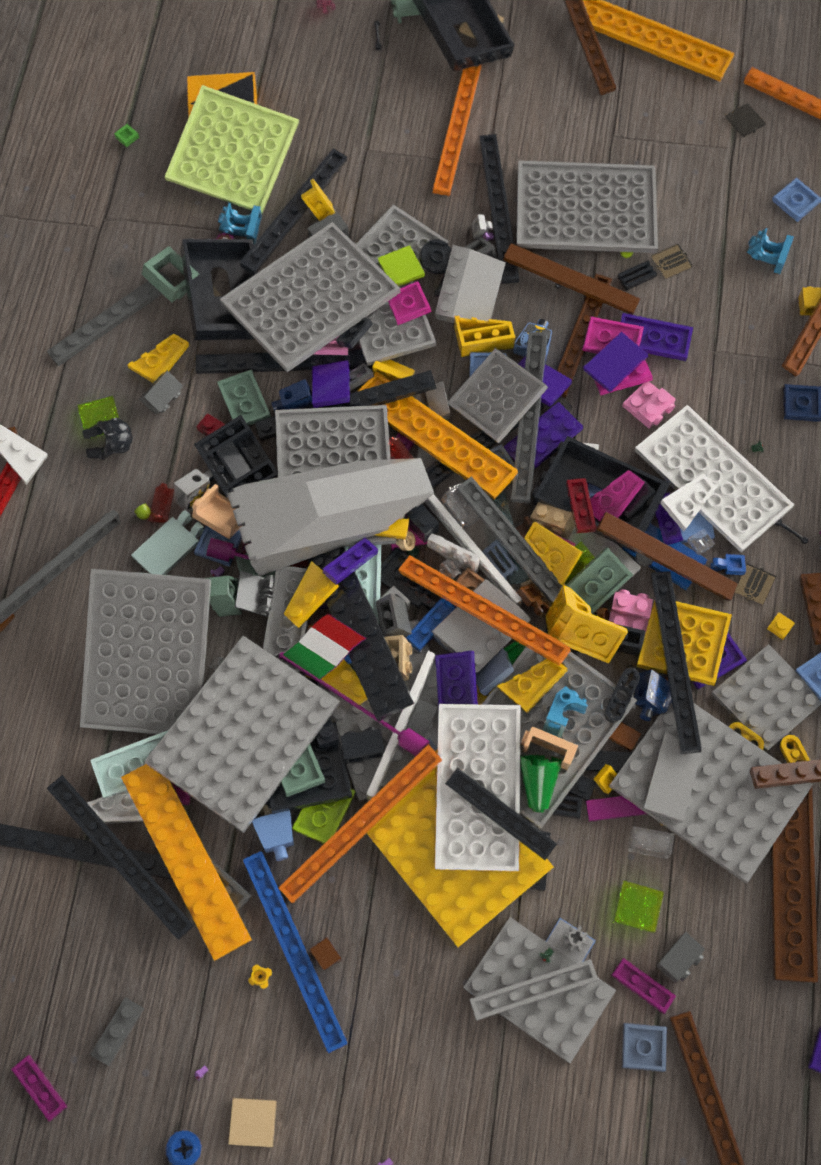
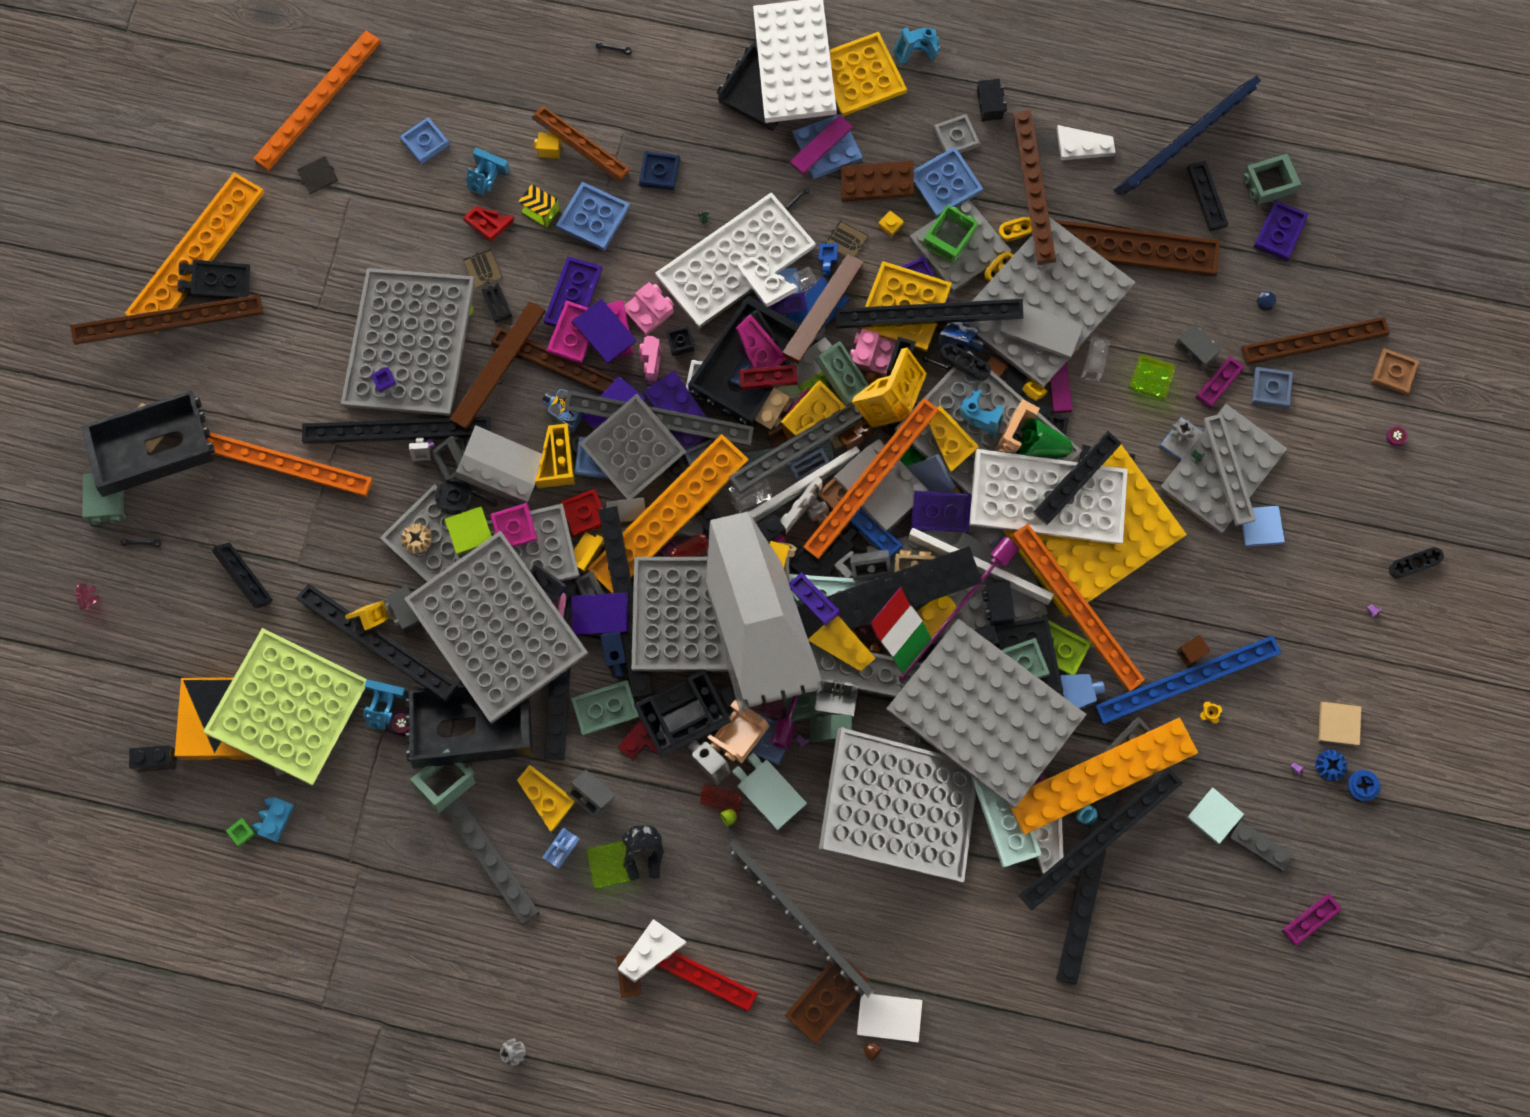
camera: 85 degrees left, 5 degrees up
(112, 373) = (561, 848): none -> medium blue hips
(139, 159) = (273, 819): none -> dark azure plate
(146, 845) = (1087, 815): none -> medium azure tile
(149, 982) = (1215, 816): none -> light aqua tile
(186, 63) = (152, 758): none -> black brick
(216, 1112) = (1322, 764): none -> blue gear
(351, 108) = (242, 575): none -> black plate
(394, 237) = (416, 546): none -> tan gear
(437, 362) = (582, 512): none -> red tile
(475, 1037) = (1266, 528): none -> light blue tile
(541, 185) = (383, 379): none -> dark purple tile
(593, 407) = (651, 358): none -> bright pink plate
(618, 434) = (680, 341): none -> black piece
(626, 53) = (215, 279): none -> black tile
(719, 259) = (487, 222): none -> red wing
(740, 347) = (593, 216): none -> medium blue plate
(742, 298) = (539, 206): none -> piece
(751, 1040) = (1266, 300): none -> dark blue tile
(780, 666) = (940, 247): none -> bright green window

